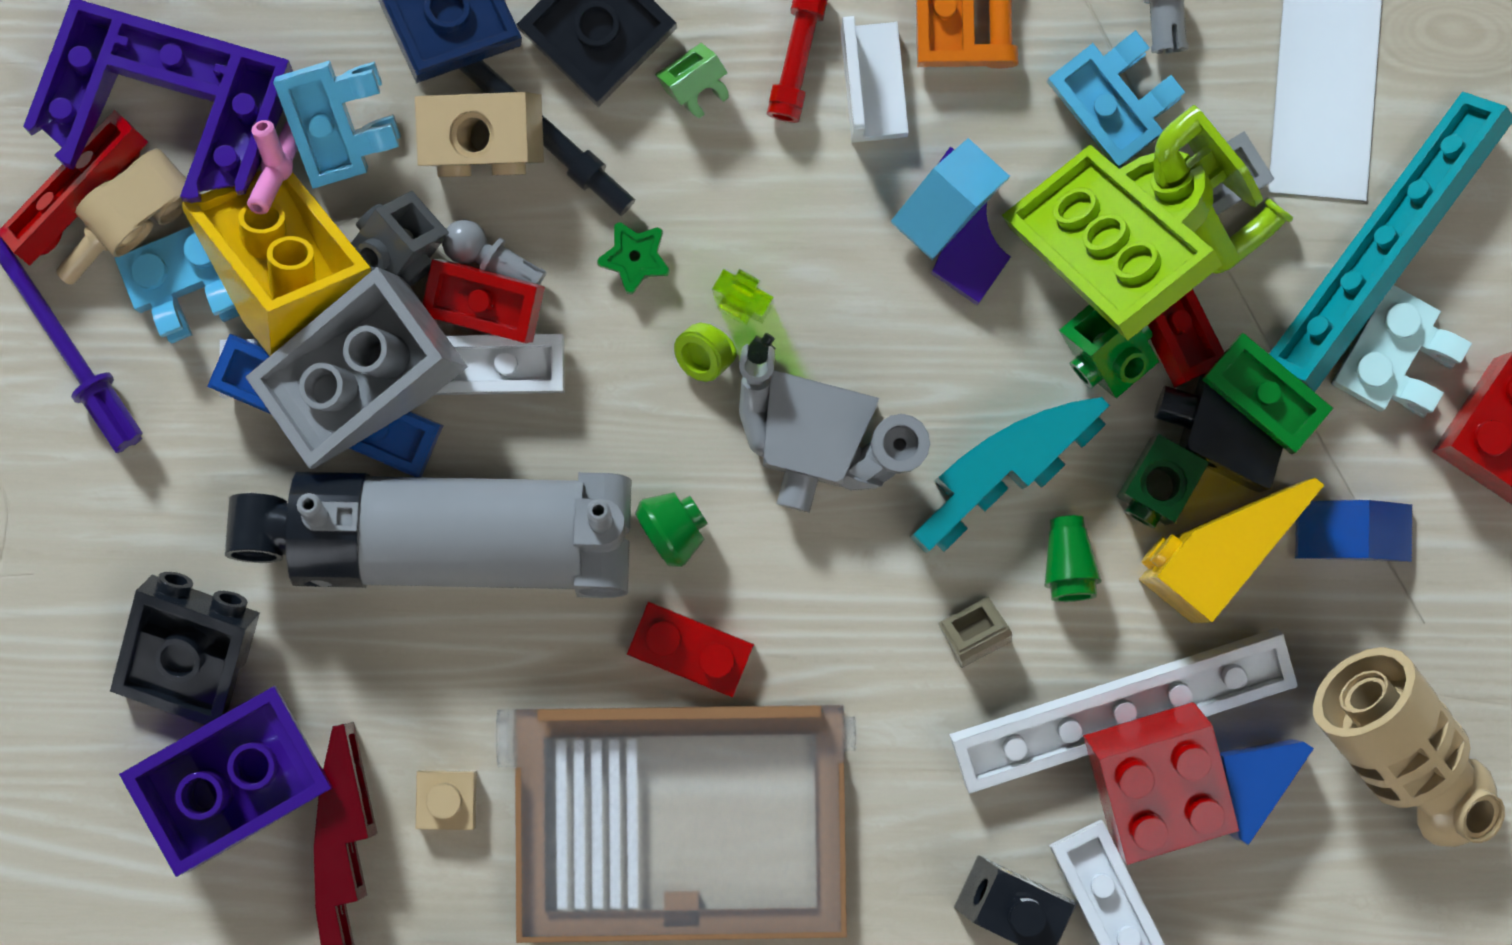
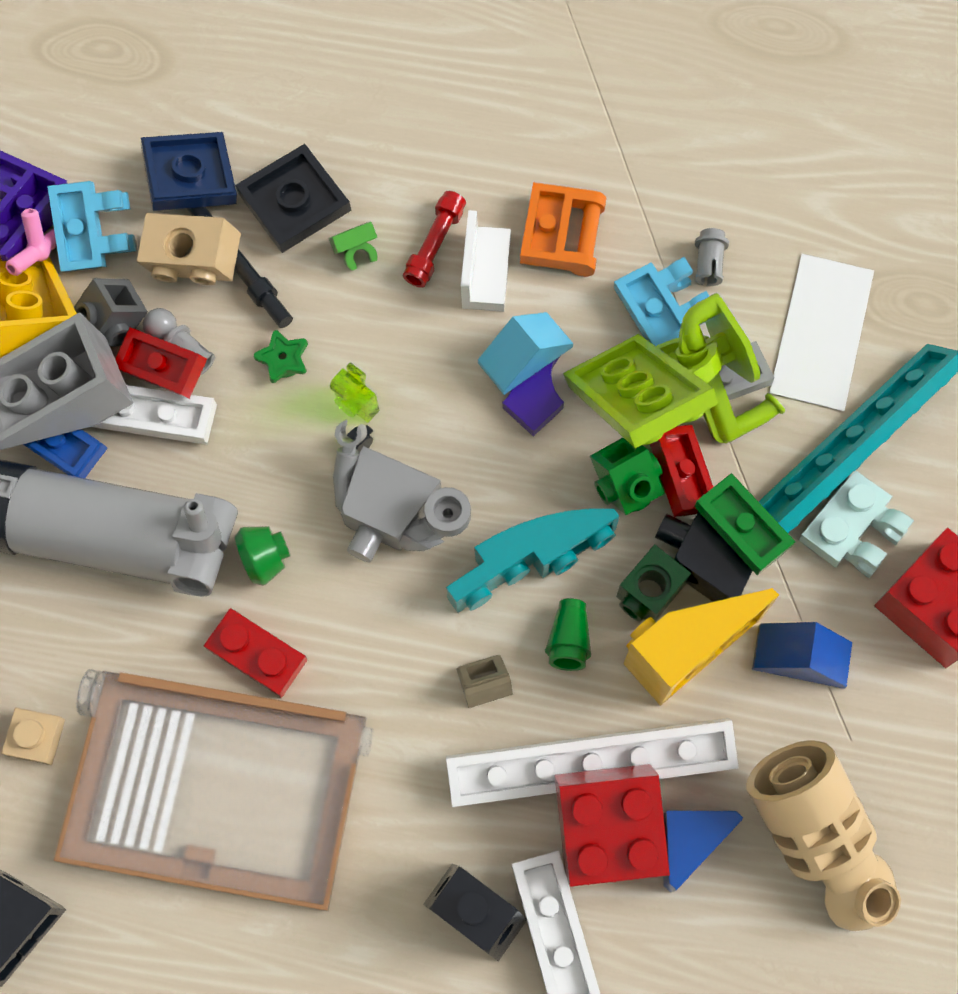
camera: 10 degrees right, 15 degrees down
(704, 351) = (316, 430): lime tile -> none

